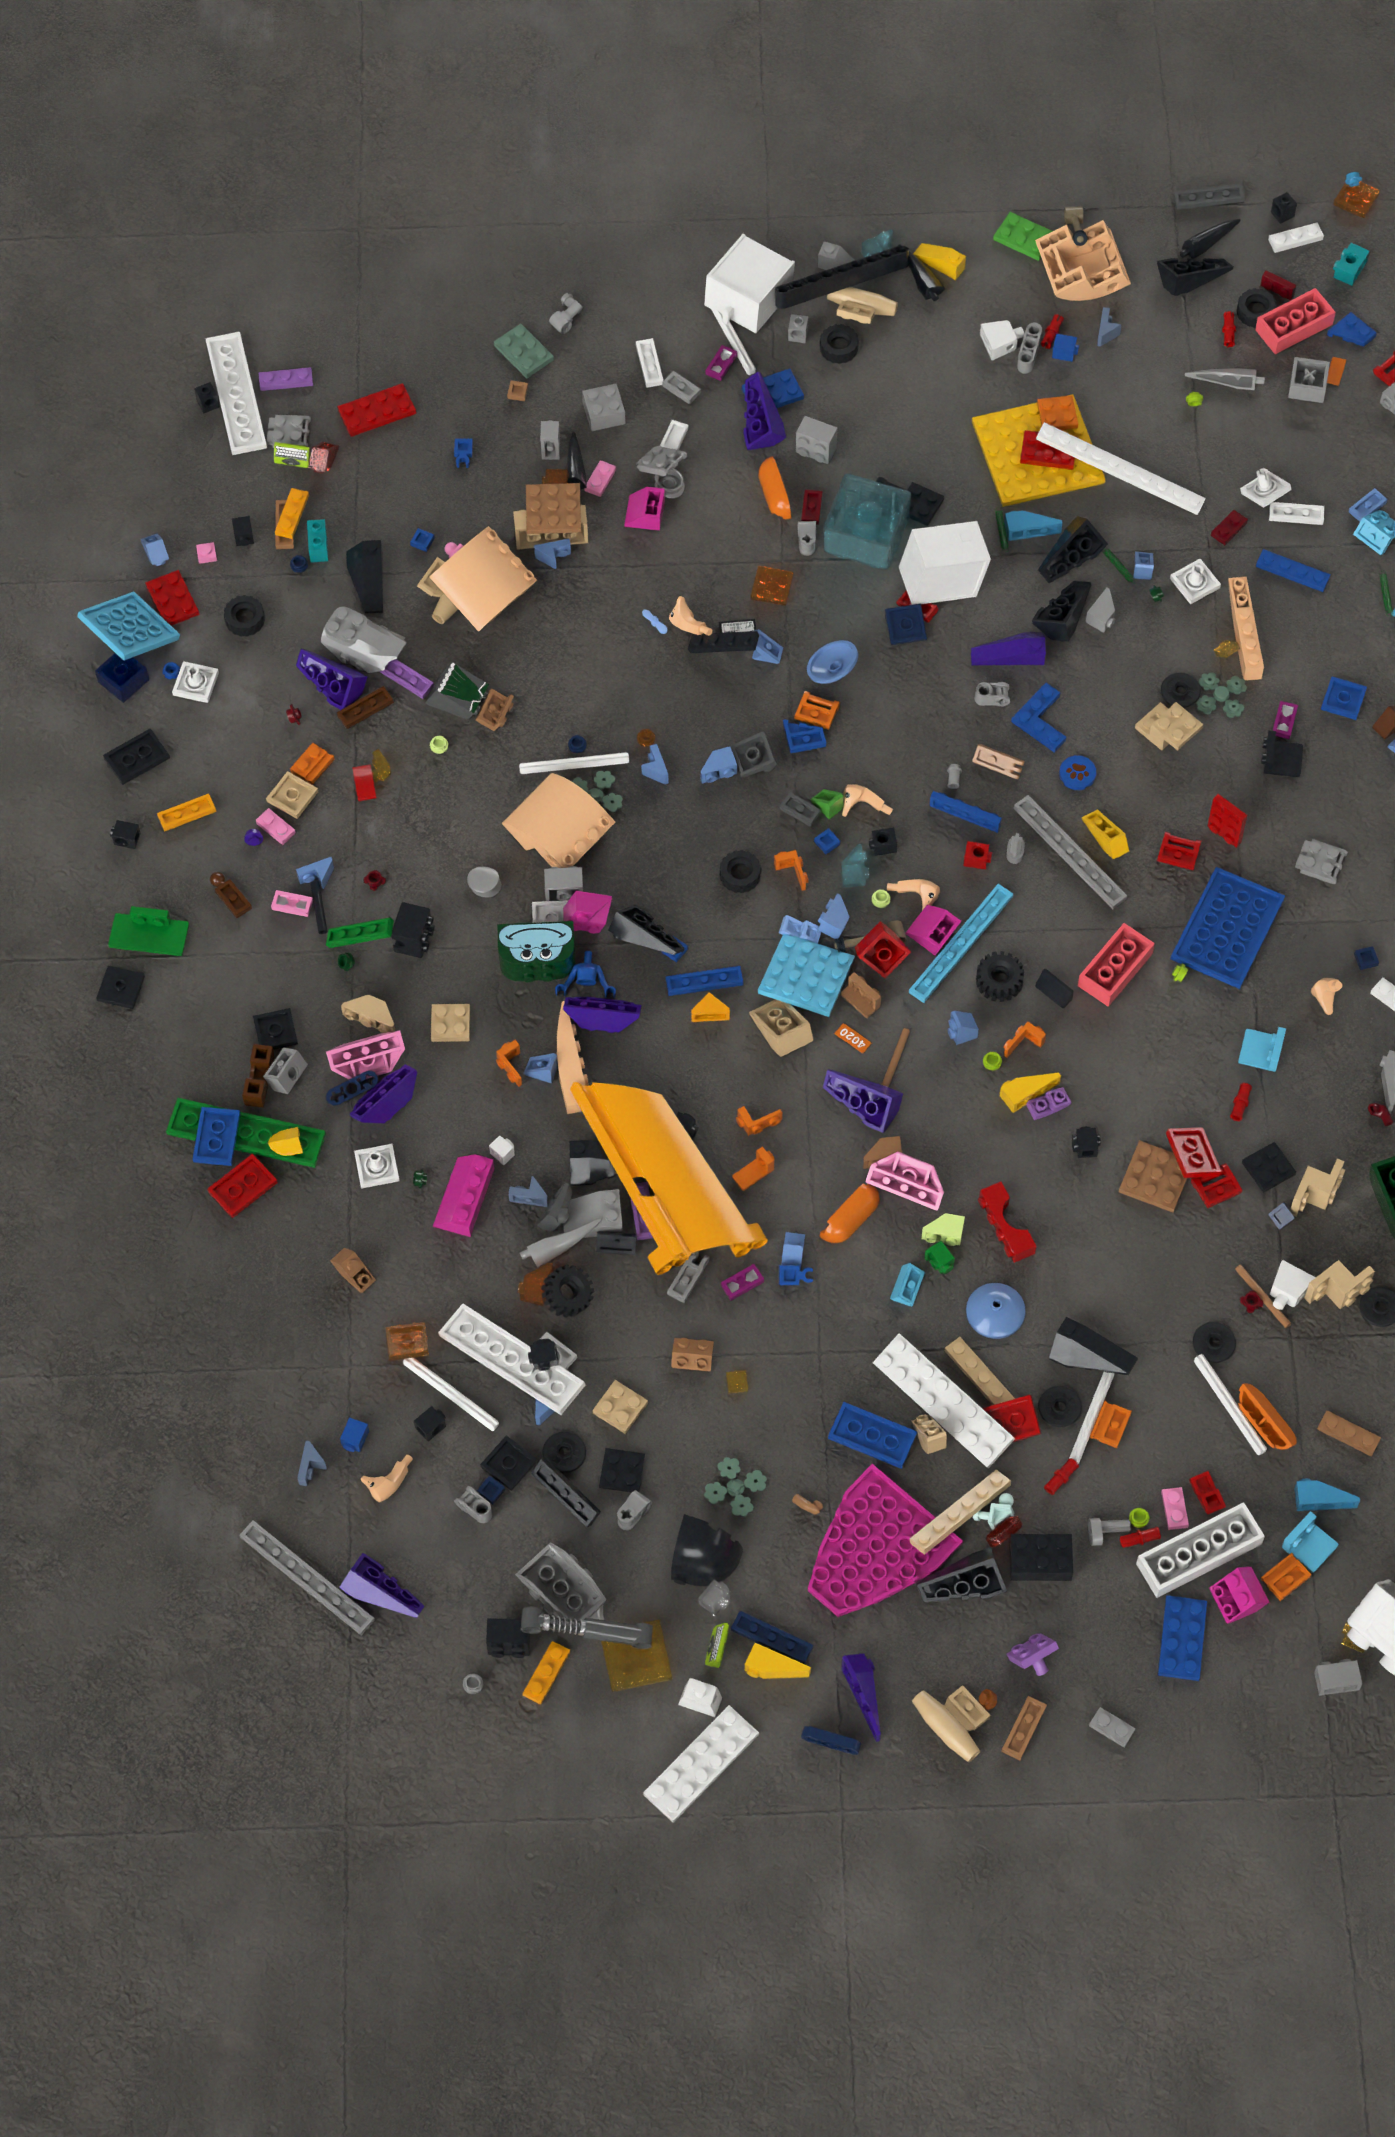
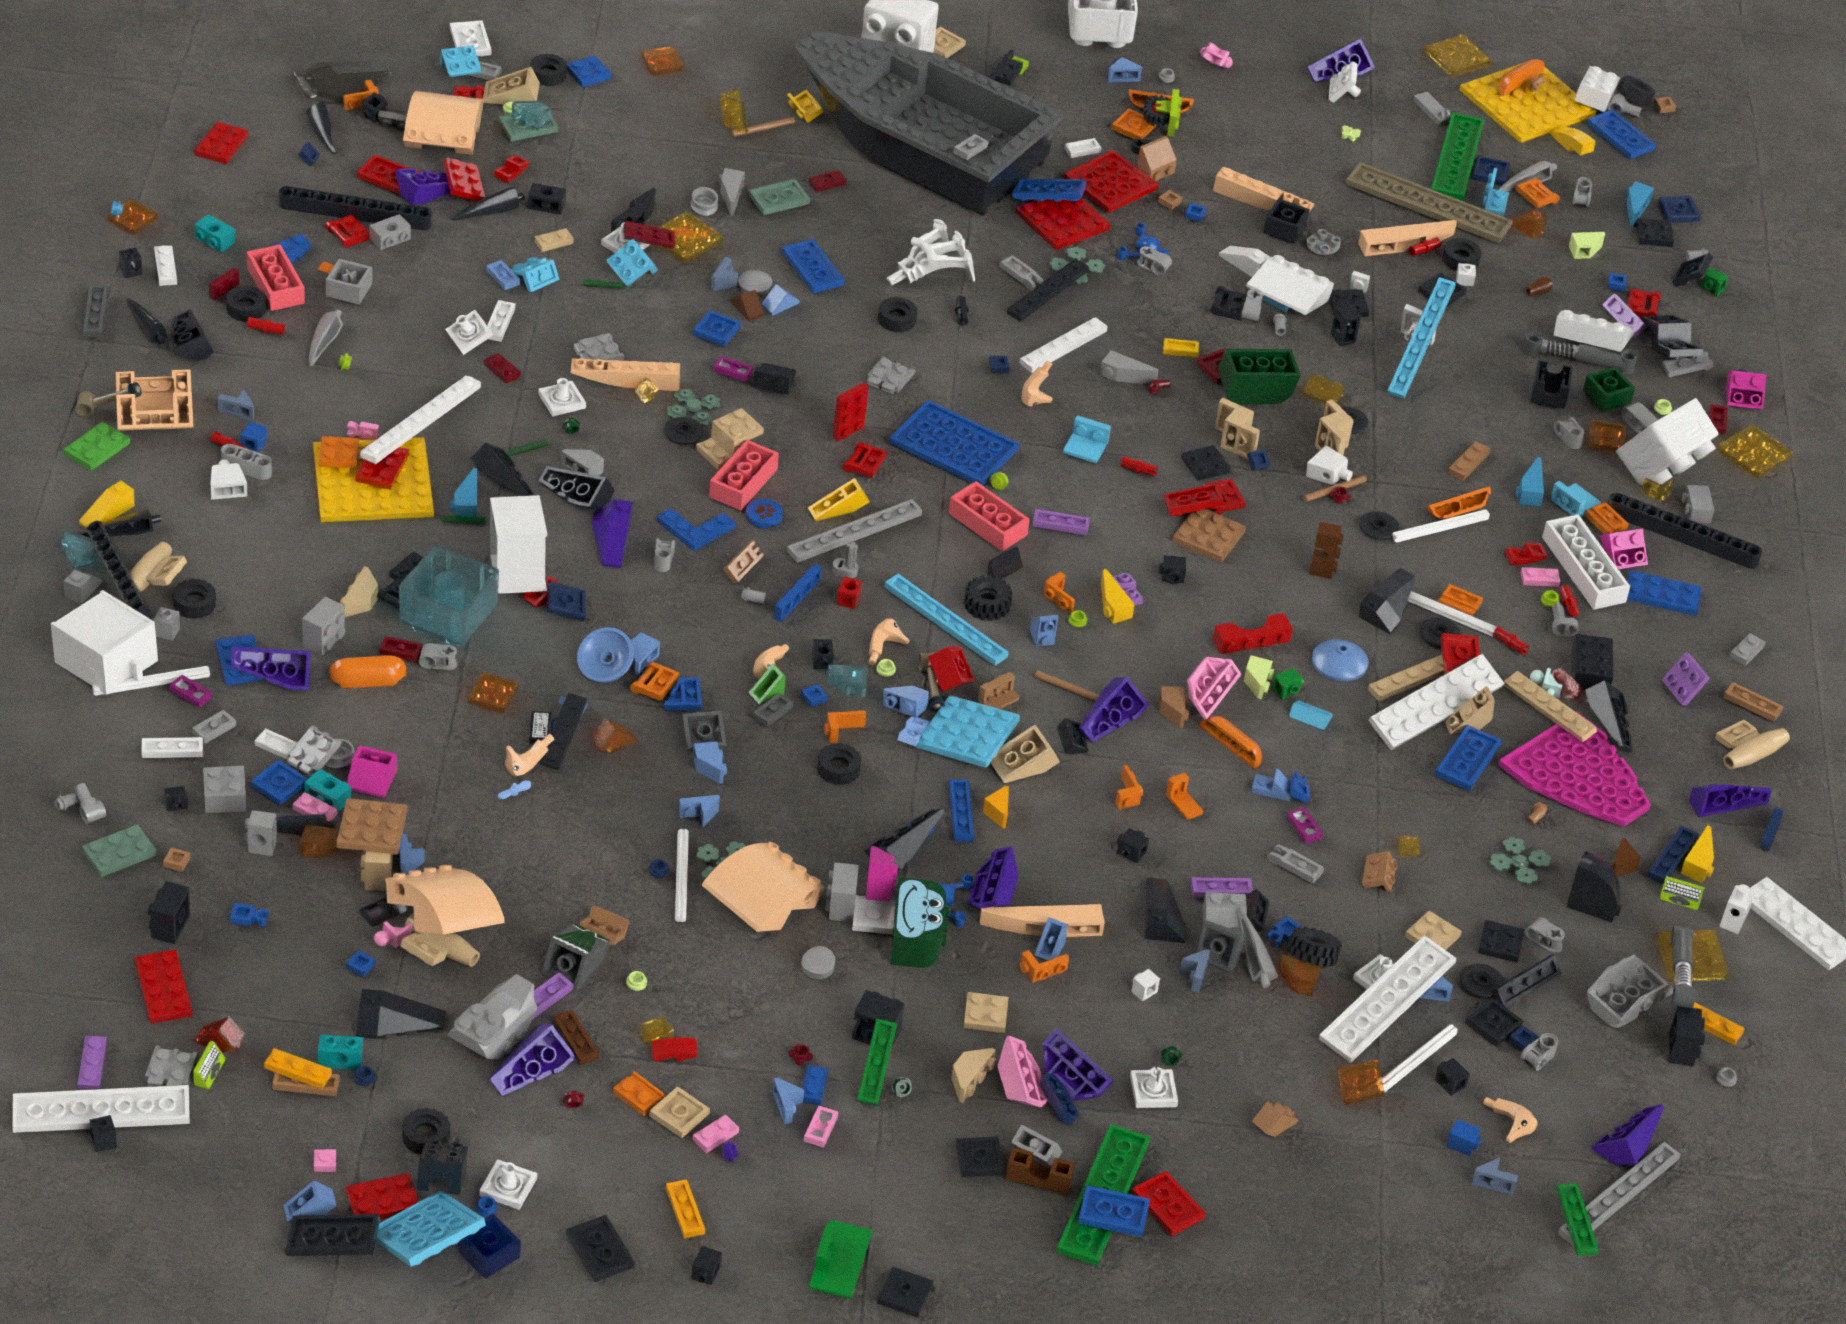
camera: 90 degrees left, 20 degrees down
(120, 567) = (332, 1235): none -> black plate
(195, 627) = (442, 1162): none -> black piece
(230, 895) = (801, 1179): reddish brown plate -> none
(242, 531) = (307, 1119): black brick -> none
(262, 1534) = (1577, 1219): none -> green tile
(286, 1142) = (1125, 1149): yellow brick -> none
(318, 907) = (811, 1106): black piece -> none
(342, 894) = (814, 1084): none -> blue plate
(446, 393) = (169, 912): none -> black brick
(464, 1194) = (1194, 1019): dark pink slope -> none
(543, 1354) = (1396, 958): black brick -> none
(591, 378) = (176, 798): none -> black bracket
(597, 1270) = (1282, 930): none -> blue plate
(616, 491) = (328, 789): none -> teal brick
(623, 446) = (278, 782): none -> blue plate
(646, 733) = (661, 814): clear orange plate -> none
(650, 1142) = (1165, 859): light orange panel -> none
(715, 1597) = (1635, 888): clear brick -> none
(734, 686) = (612, 736): none -> clear orange slope
(753, 1586) = (1626, 859): none -> reddish brown slope
(817, 1071) = (1072, 737): none -> black slope
(849, 693) = (645, 651): none -> medium blue slope
(853, 1038) = (1038, 714): orange sticker -> none
(874, 464) = (360, 595): none -> tan slope
(933, 928) = (932, 630): dark pink slope -> none
(988, 1699) = (1728, 719): dark orange plate -> none
(1096, 433) = (365, 430): none -> bright pink plate
(1118, 744) = (743, 475): none -> coral brick
(1133, 1034) = (1061, 522): none -> medium lavender plate
(1134, 1277) = (1324, 560): none -> reddish brown arch
(1143, 565) = (537, 424): medium blue slope -> none
(1280, 601) = (598, 347): none -> light grey plate
(1287, 1669) = (1686, 531): none -> black beam
(1293, 570) = (563, 336): blue plate -> none

